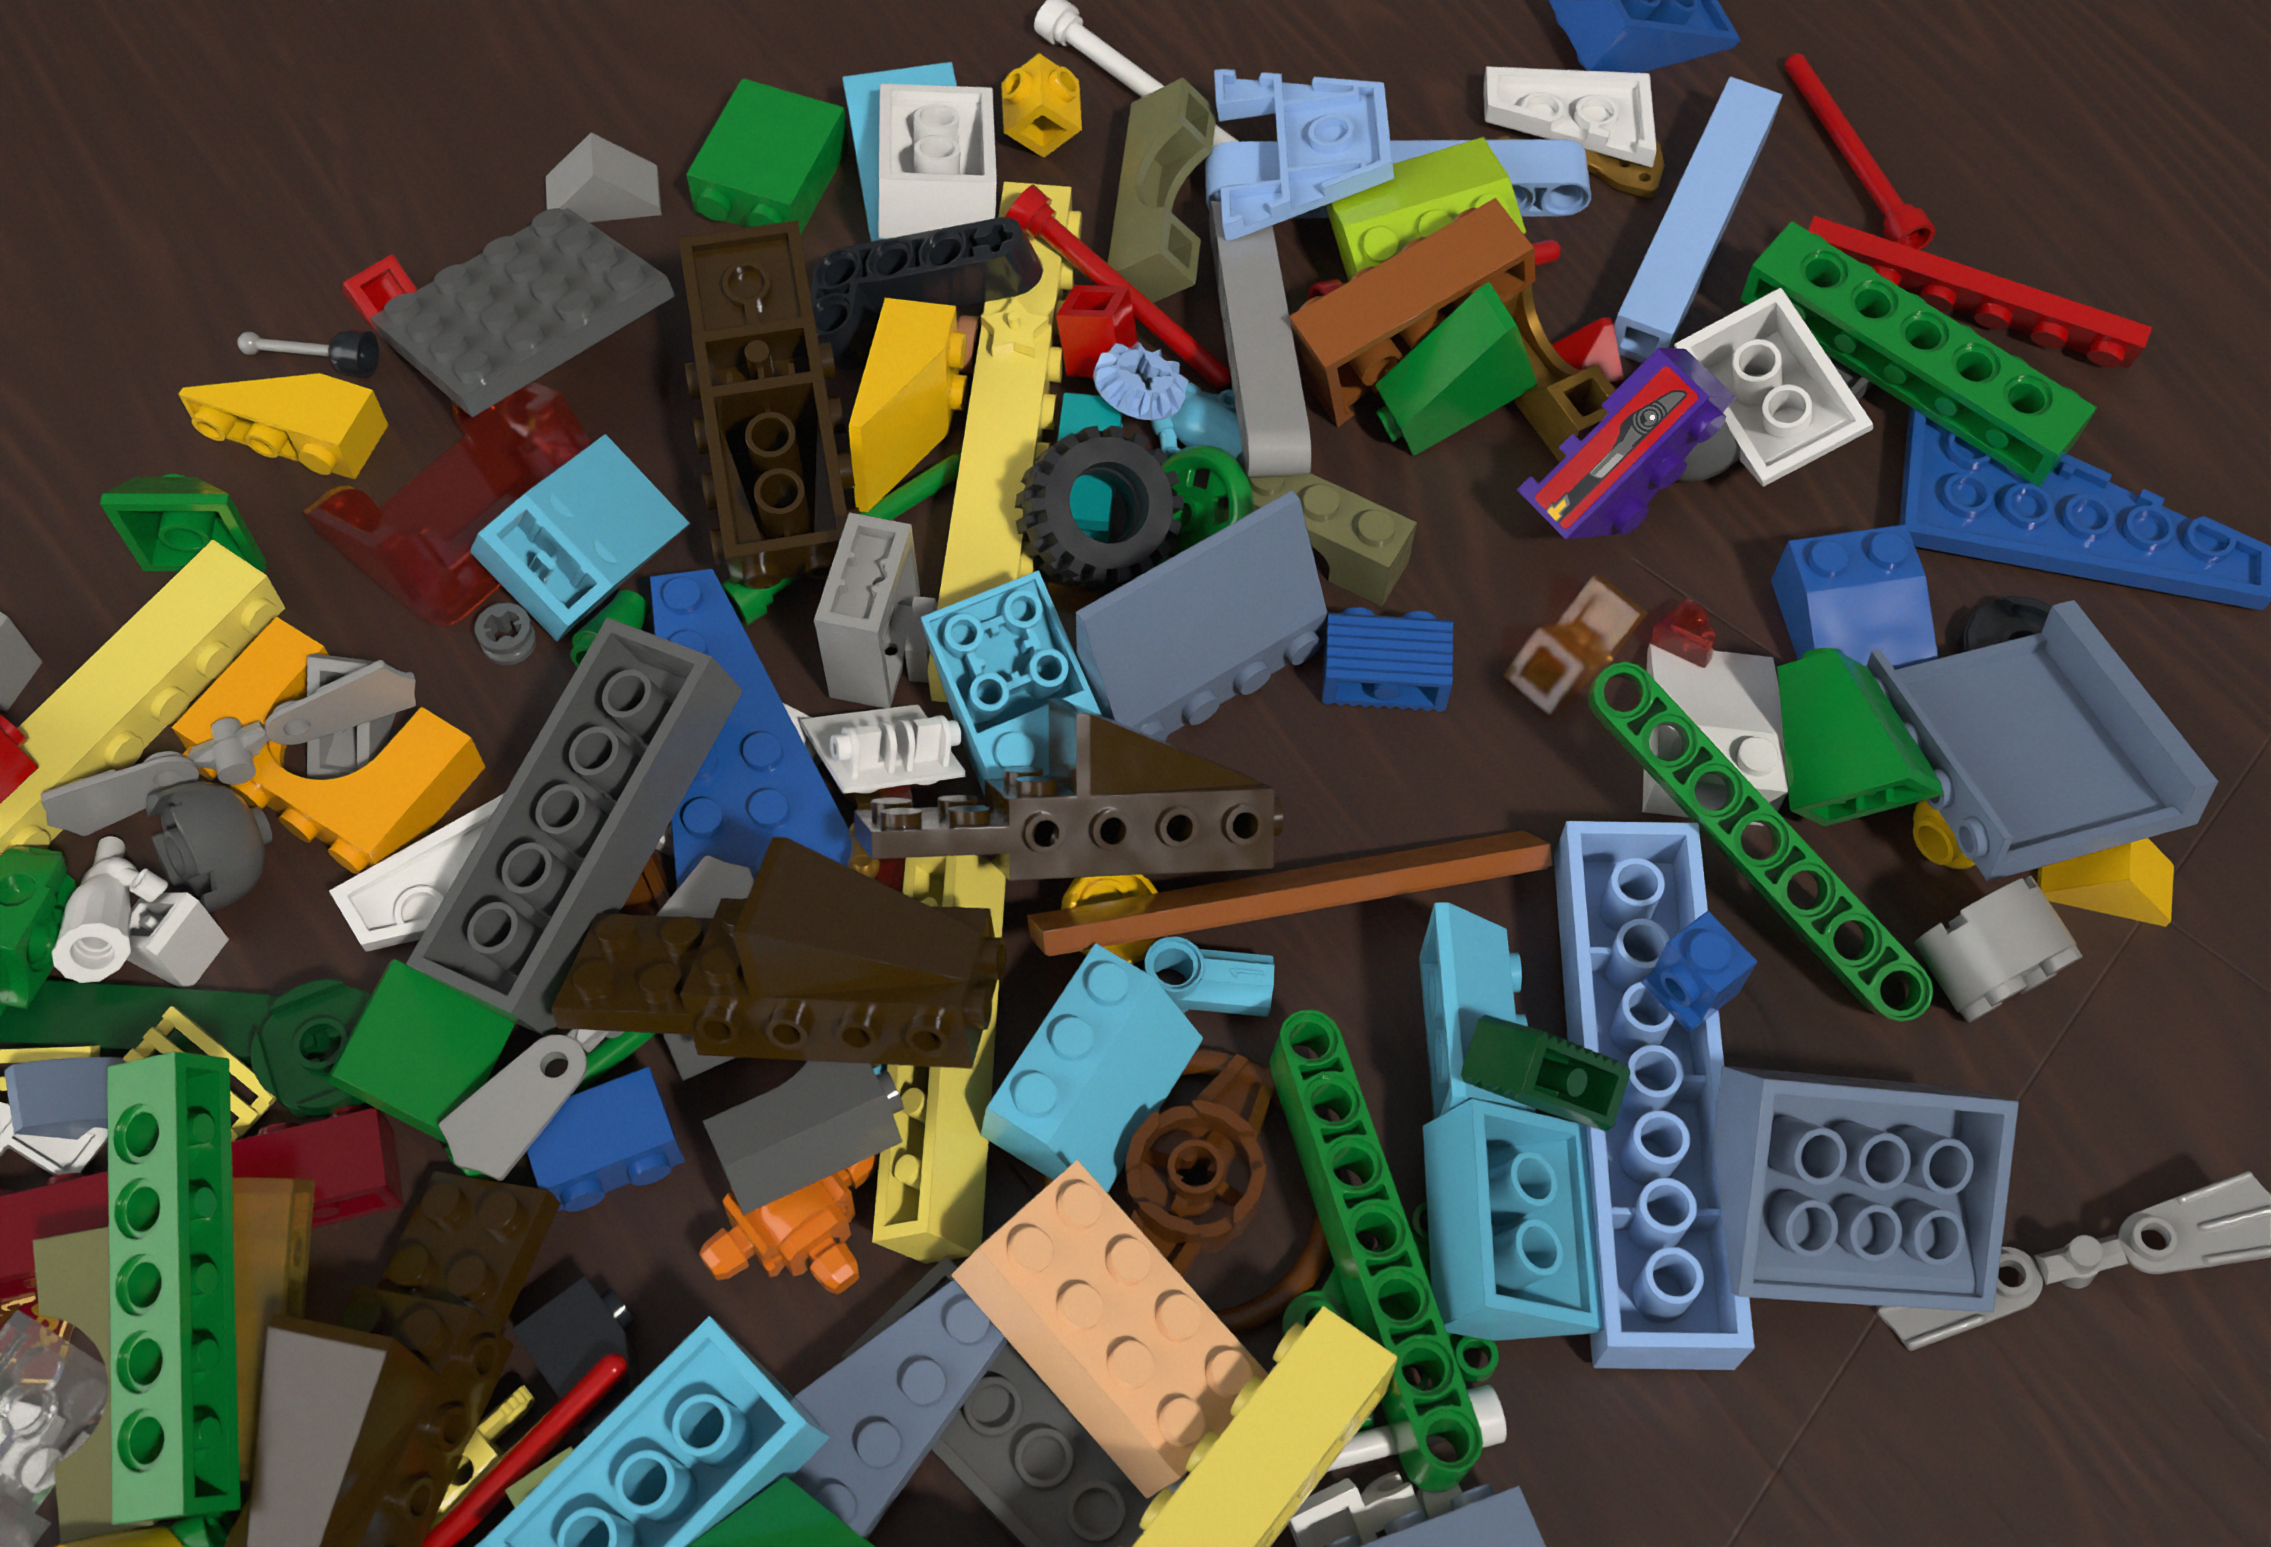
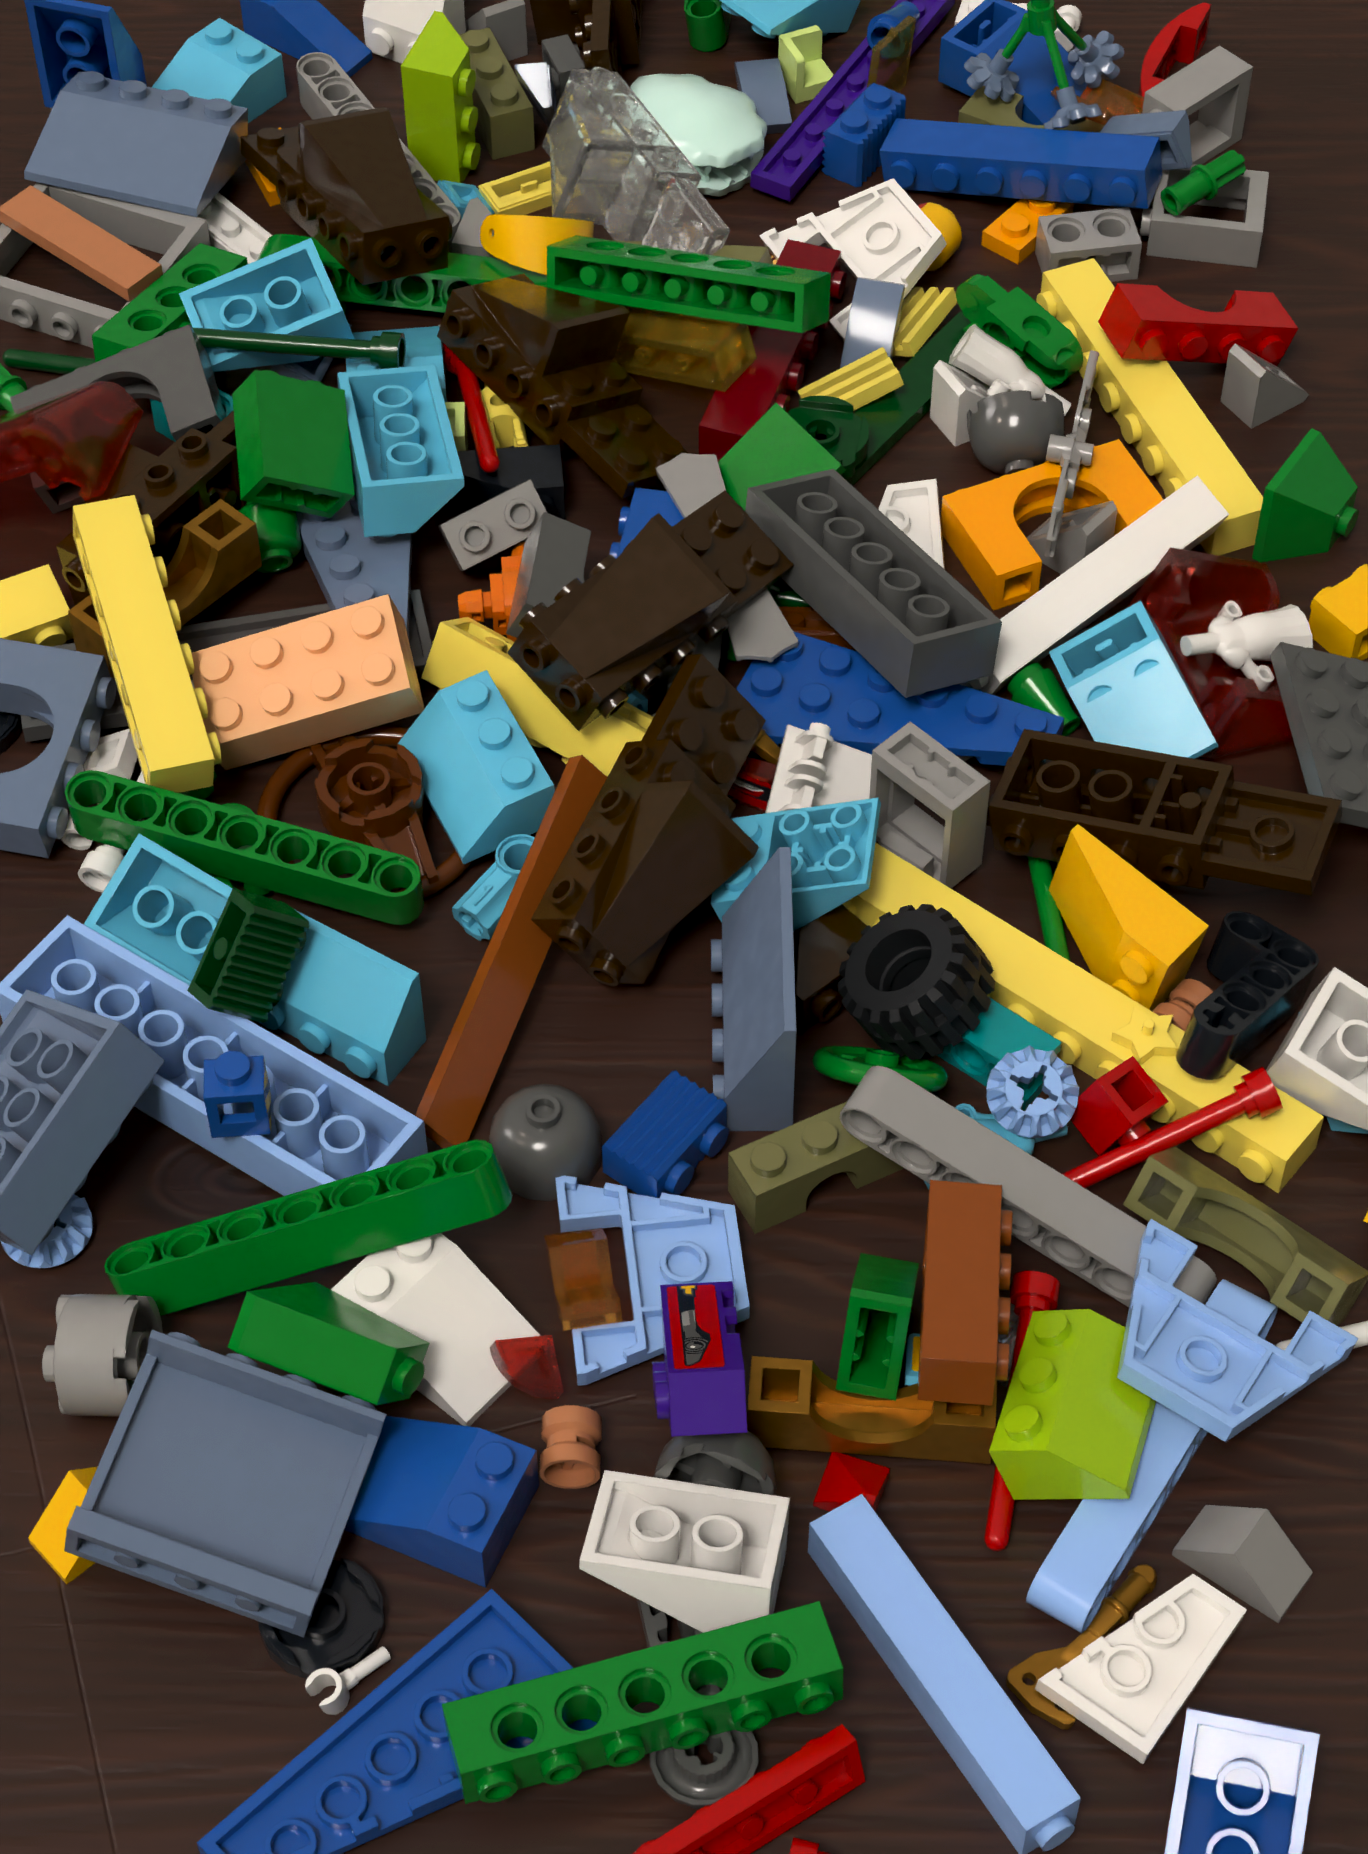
camera: 125 degrees right, 10 degrees down
(409, 628) = (1101, 580): none -> white brick
(416, 477) = (1250, 638): none -> white piece
(686, 1285) = (493, 525): none -> light grey brick
(1437, 100) = (1246, 1556): none -> light grey slope
(1462, 763) = (543, 1136): none -> dark grey cylinder
(1502, 580) = (664, 1244): none -> light blue wing
(1730, 557) = (570, 1451): none -> nougat wheel
(2078, 590) = (343, 1681): none -> white hand

